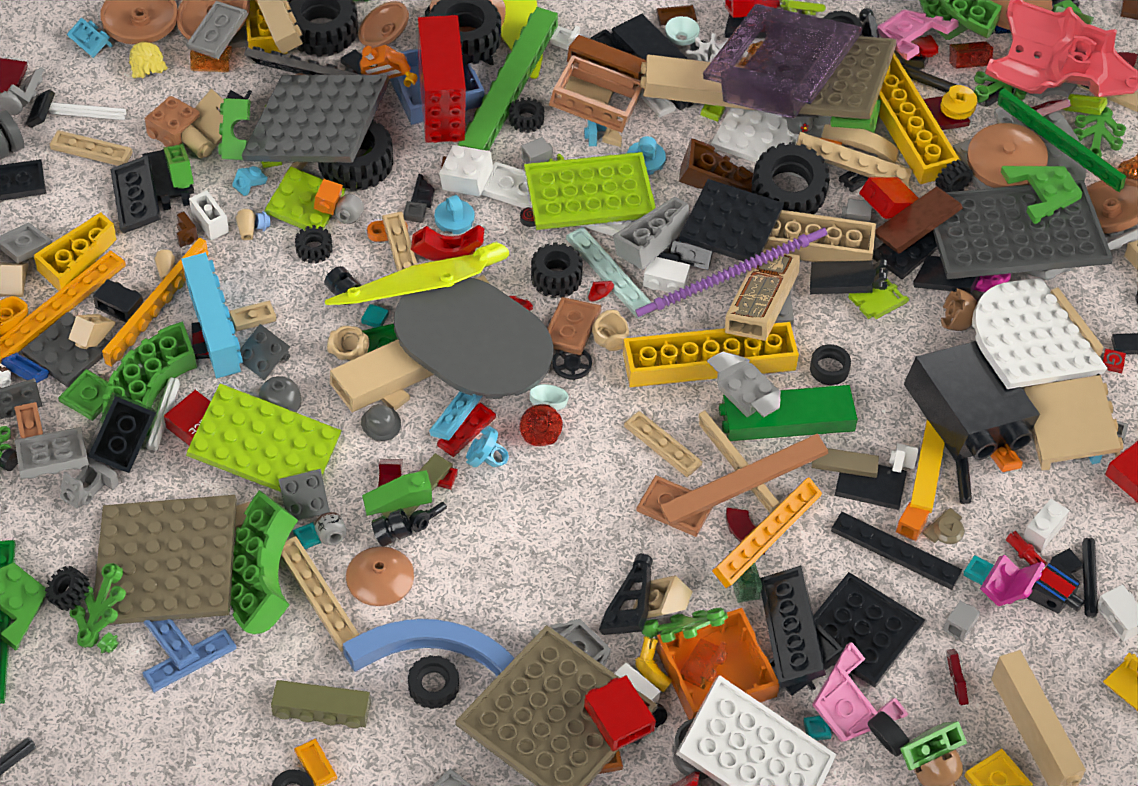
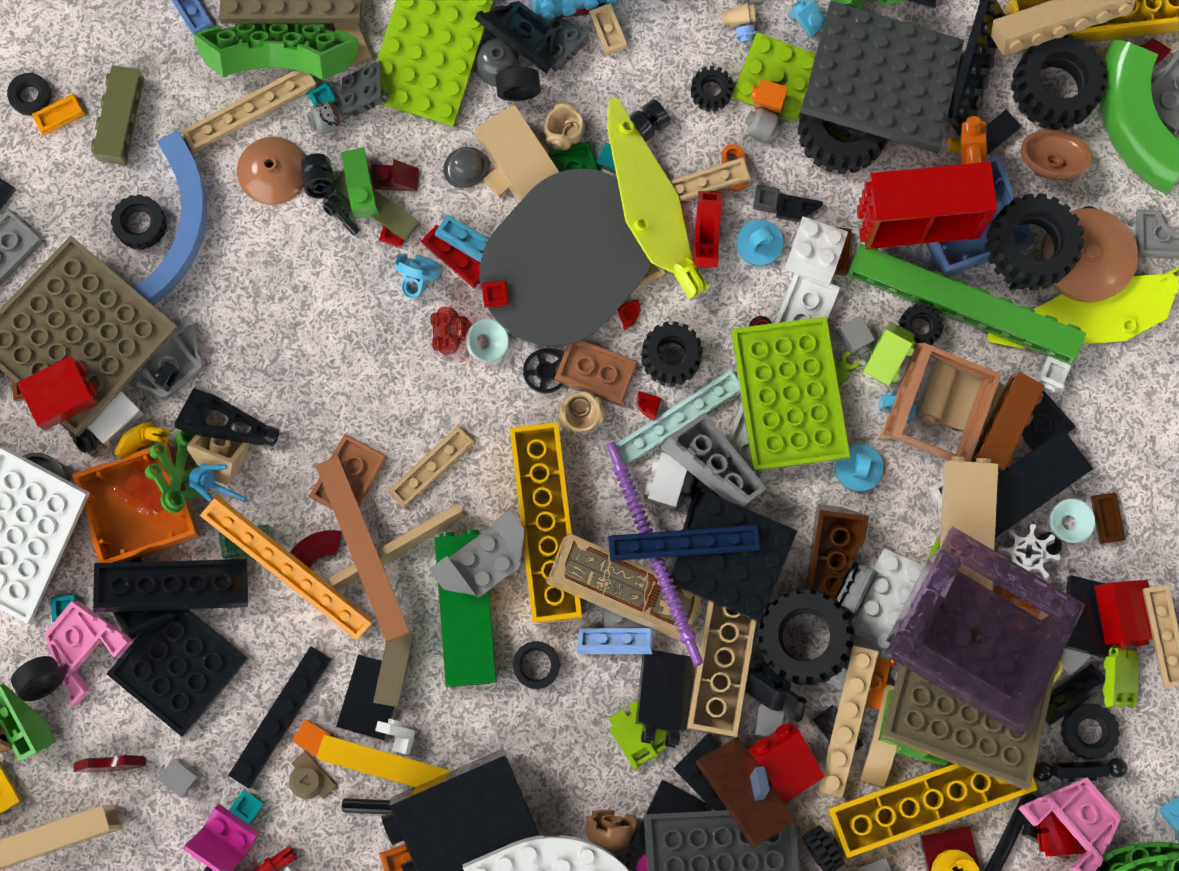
camera: 90 degrees right, 25 degrees up
(259, 365) = (522, 31): none -> black wing
(306, 374) = (518, 84): none -> black tyre
(510, 382) = (494, 294): none -> red tile
(555, 123) = (889, 353): none -> lime container
(593, 639) = (166, 376): none -> black plate
(692, 601) = (202, 478): none -> dark azure plant
(726, 245) = (684, 543): none -> dark blue tile
(743, 157) = (856, 588): none -> plate
(804, 309) = (615, 641): none -> light blue tile
(838, 199) = (774, 692): none -> black piece
(912, 204) = (759, 783): none -> sand blue tile

